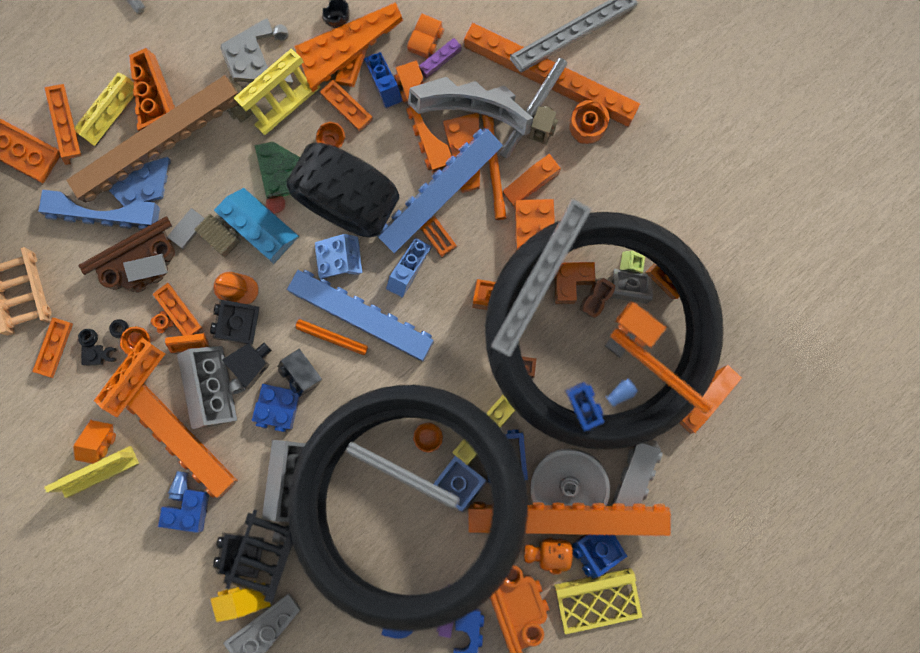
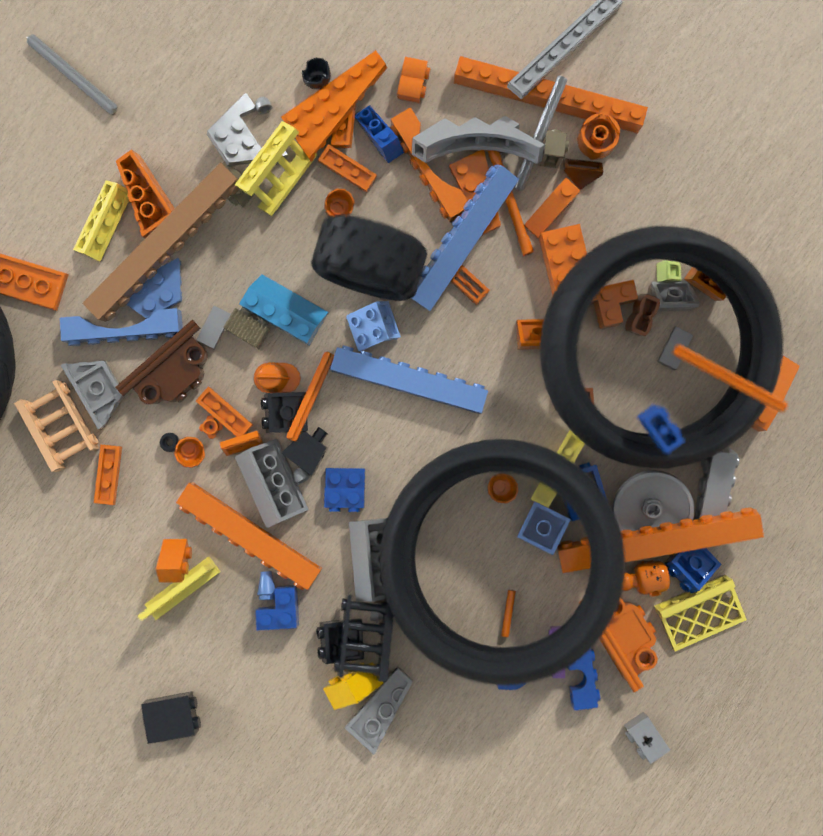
camera: 10 degrees left, 5 degrees up
(56, 596) = (170, 717): none -> black brick
(60, 263) = (95, 388): none -> light grey wing
(63, 122) = (63, 244): orange fence -> none
(84, 335) = (137, 454): black plate -> none
(95, 354) = (152, 474): black plate -> none
(129, 378) = (195, 490): orange fence -> none
(145, 267) = (184, 376): light grey tile -> none
(261, 313) = (310, 397): none -> orange axle
(275, 168) = (293, 247): clear green plate -> none
(275, 205) = (297, 283): clear red tile -> none
(299, 373) = (360, 450): black brick -> none
(331, 337) = (382, 407): orange axle -> none
(403, 475) = (494, 533): light grey axle -> none
(408, 267) = (446, 322): medium blue slope -> none
(408, 563) = (508, 613): none -> orange piece
(440, 57) = (433, 99): medium lavender piece -> none
(541, 277) = (595, 308): light grey plate -> none
(568, 152) = (582, 172): none -> reddish brown slope
(623, 392) = (696, 405): medium blue cone -> none
(640, 325) = (701, 336): orange brick -> none

